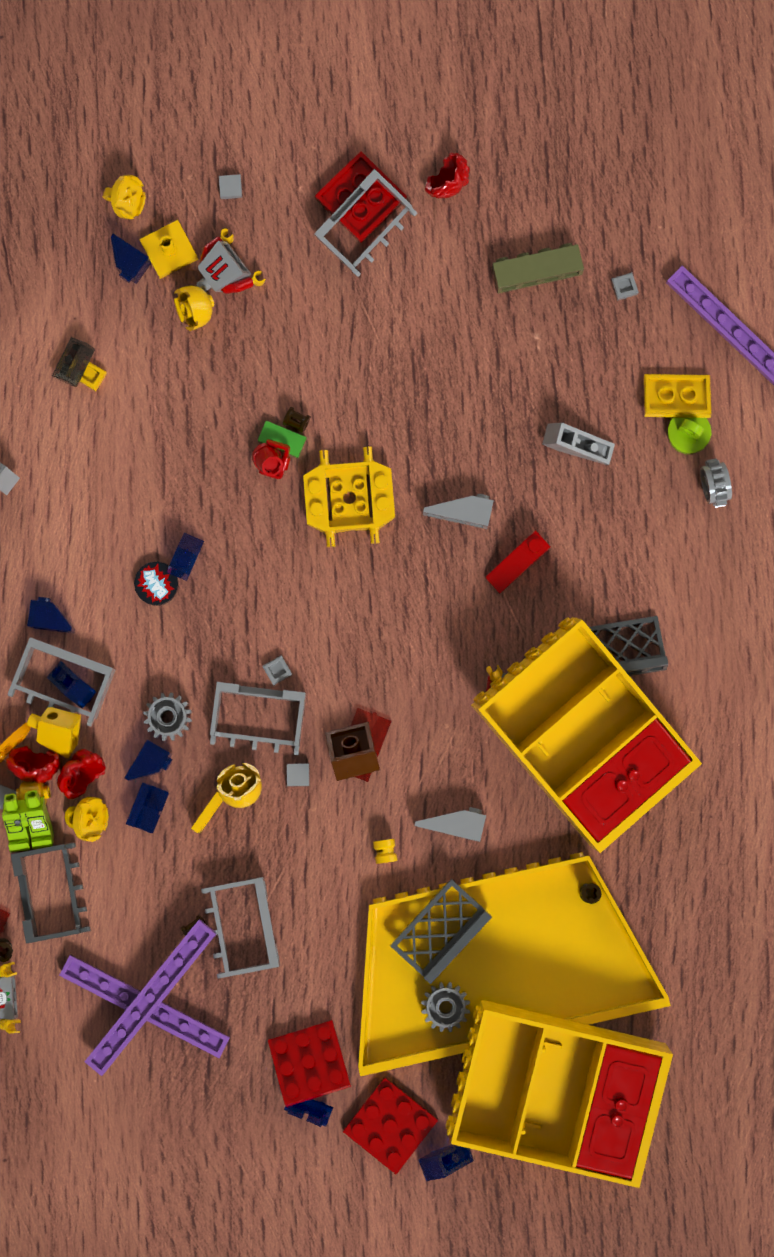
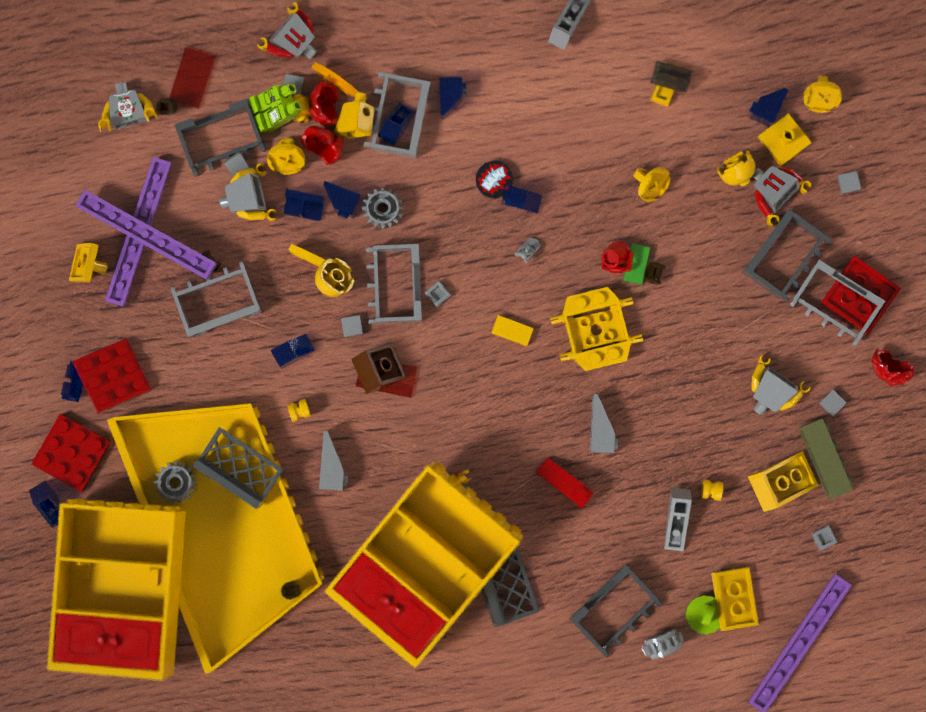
camera: 75 degrees right, 0 degrees up
(86, 879) = (235, 163): none -> light grey tile
(124, 872) = (246, 195): none -> light grey torso
(172, 1074) = (85, 263): none -> yellow tile
(193, 404) = (652, 183): none -> yellow tile
(244, 558) = (528, 249): none -> light grey piece
(301, 305) = (789, 215): none -> dark grey hinge
(315, 847) = (292, 351): none -> clear blue slope
(334, 592) = (512, 330): none -> yellow tile
(450, 311) = (773, 389): none -> light grey torso
(476, 250) = (832, 403): none -> light grey tile
(553, 397) = (711, 490): none -> yellow wheel
(555, 320) = (783, 481): none -> yellow slope
(635, 525) = (590, 603): none -> dark grey hinge

